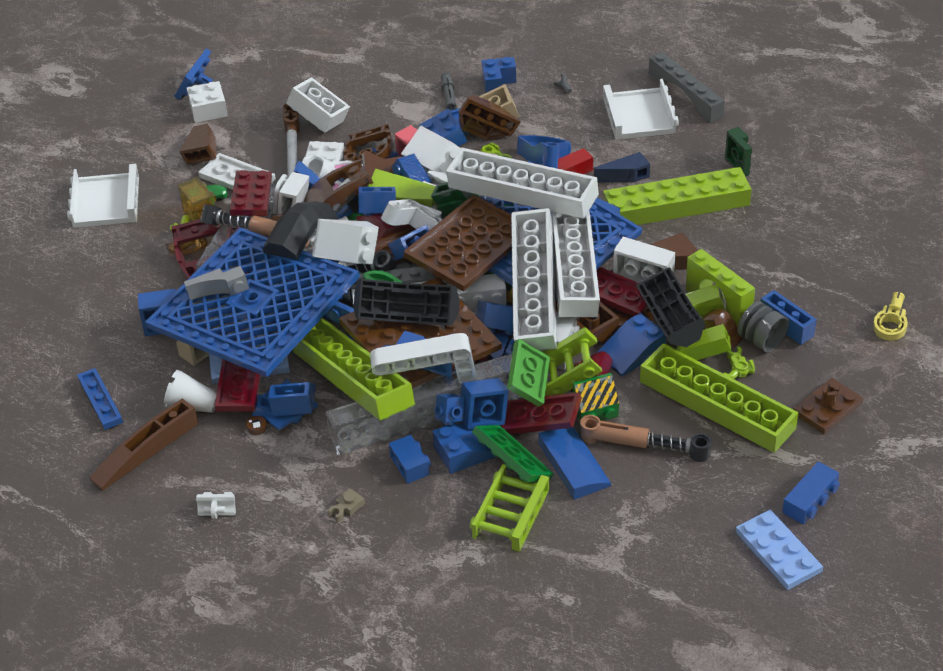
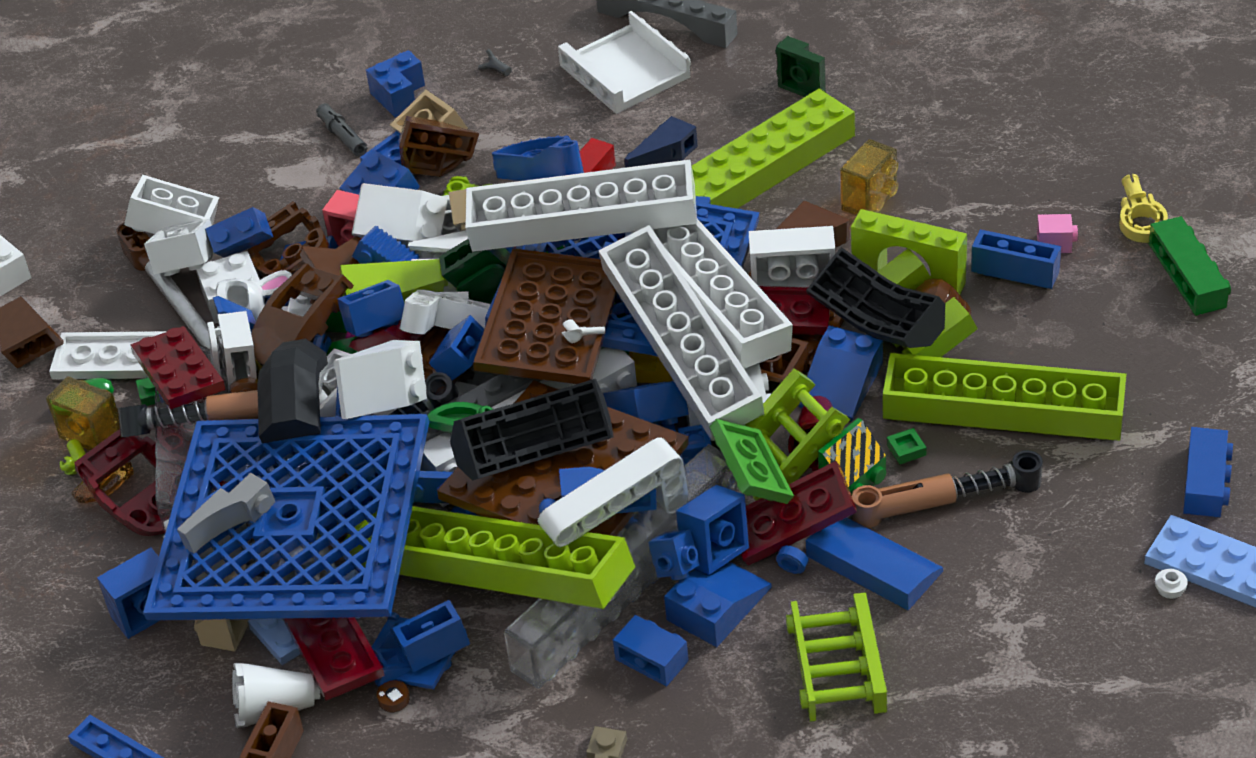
camera: 25 degrees left, 0 degrees up
(308, 127) = (180, 248): none -> white brick
(344, 130) = (239, 232): none -> blue brick
(470, 256) = (575, 333): none -> white hand
(511, 452) = (800, 583): green plate -> none
(525, 440) = (792, 559): none -> blue tile
(640, 403) = (906, 446): none -> green plate
(731, 234) = (869, 178): none -> clear yellow brick
(740, 366) = (997, 346): lime piece -> none
(740, 549) = (1171, 583): none -> white plate
(763, 326) = (991, 282): dark grey wheel -> none
(827, 311) = (1057, 230): none -> bright pink brick
(828, 405) = (1143, 351): reddish brown plate -> none
(897, 363) = (1189, 265): none -> green brick

